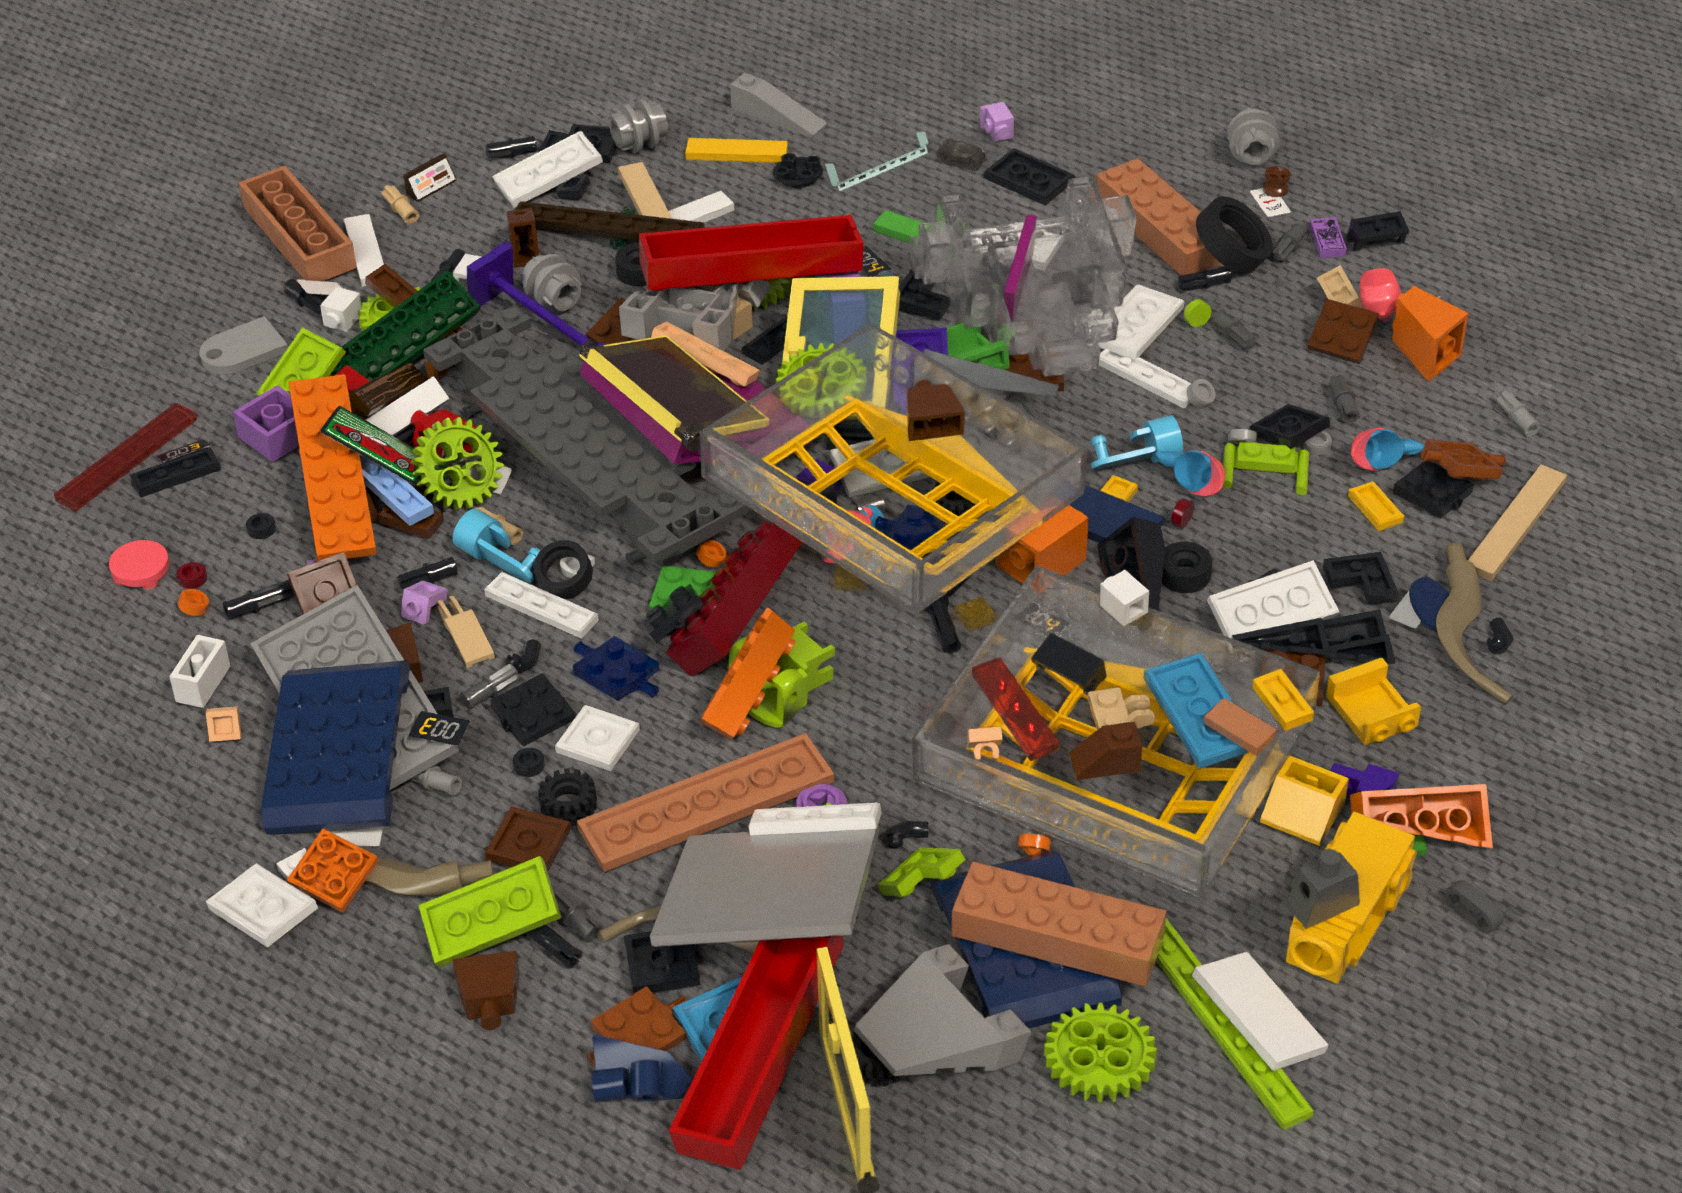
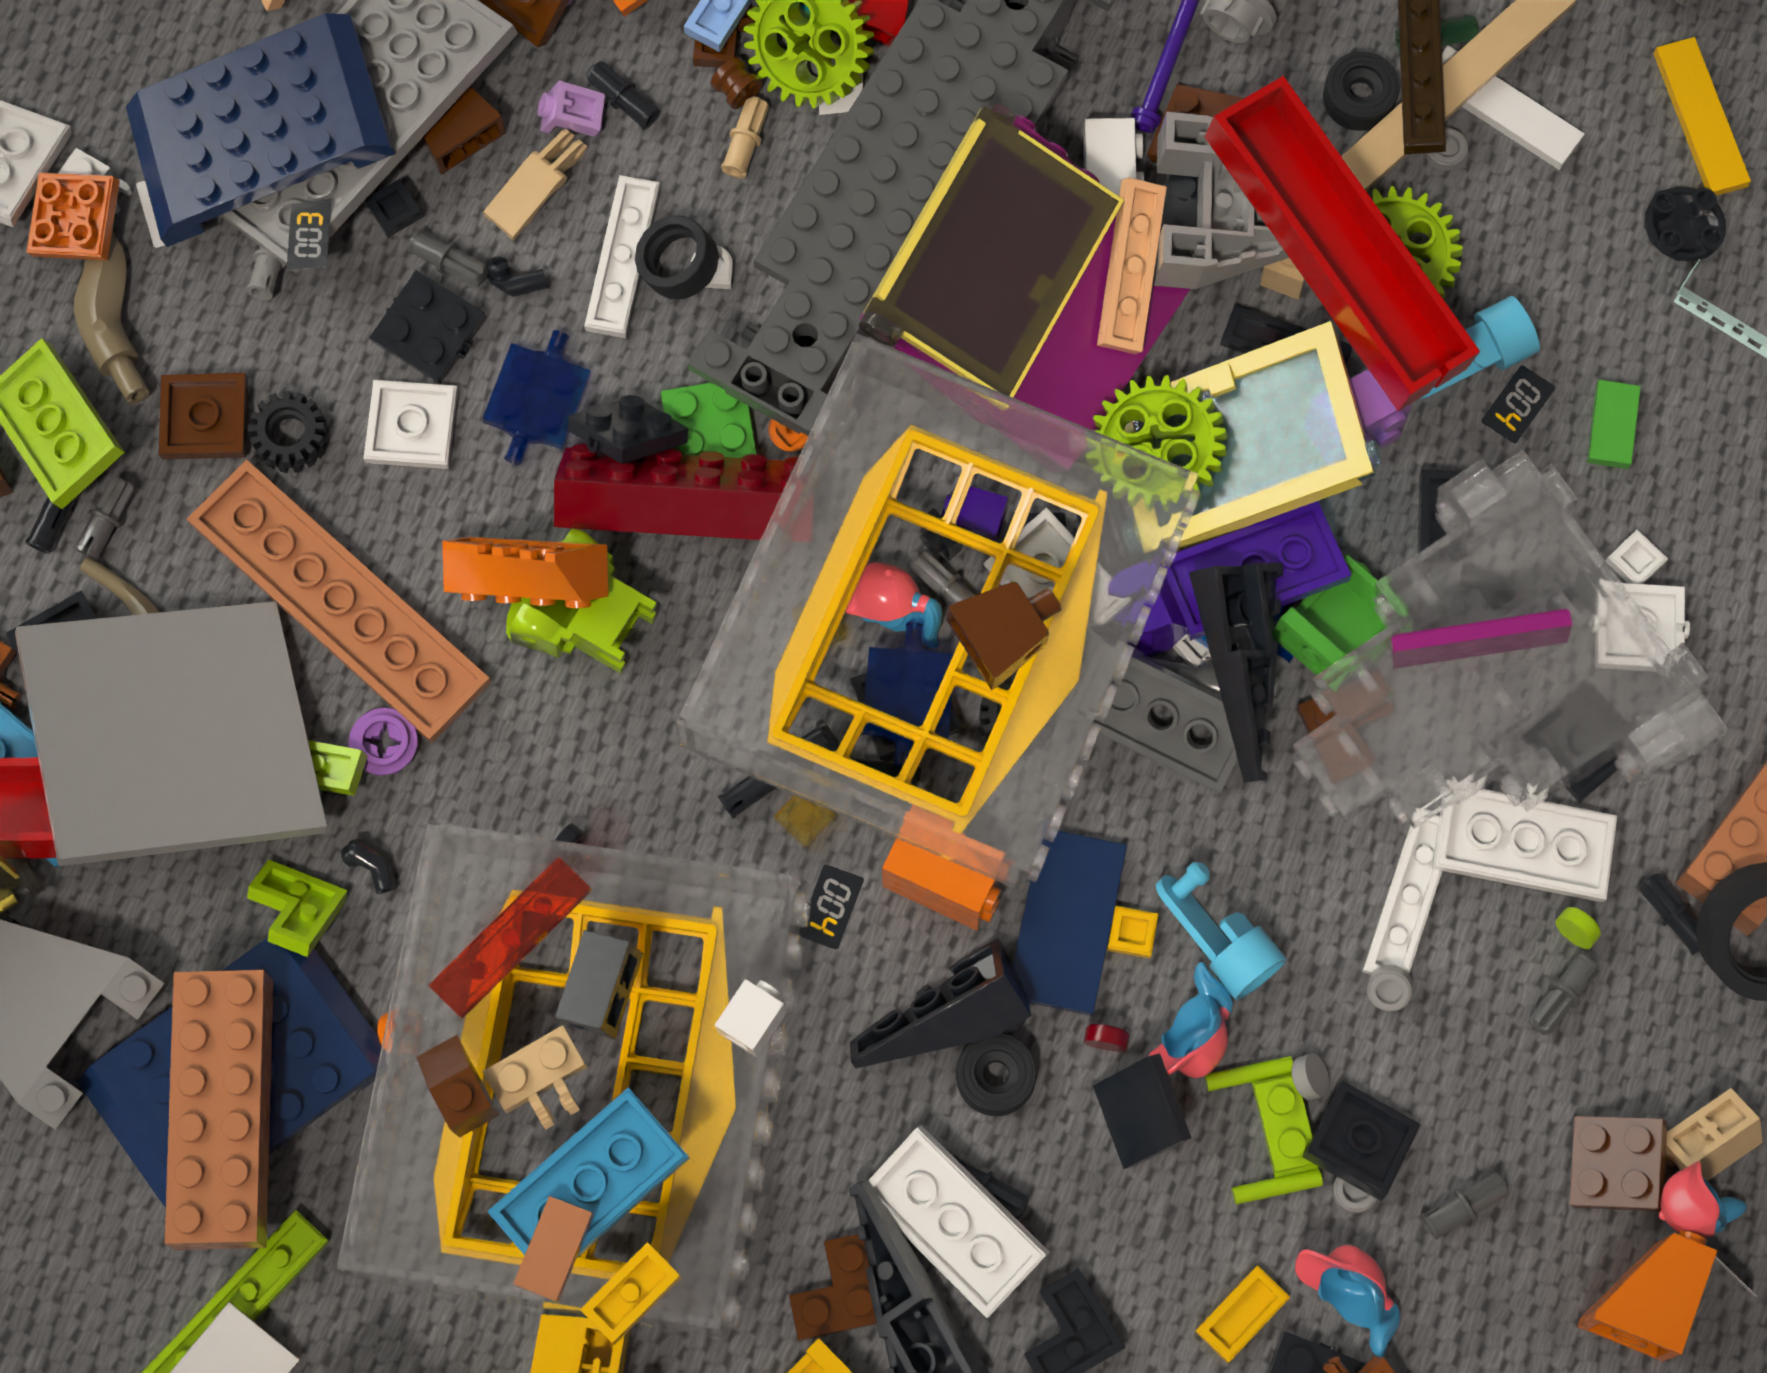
camera: 70 degrees right, 30 degrees up
(454, 514) = (736, 82): none -> reddish brown wheel
(480, 535) = (697, 127): medium azure piece -> none
(528, 762) = (341, 360): black tile -> none
(815, 819) = (318, 747): white tile -> none
(985, 738) = (431, 917): light nougat tile -> none
(1109, 1046) = (38, 1235): lime gear -> none
(1237, 502) = (1142, 1111): none -> black tile

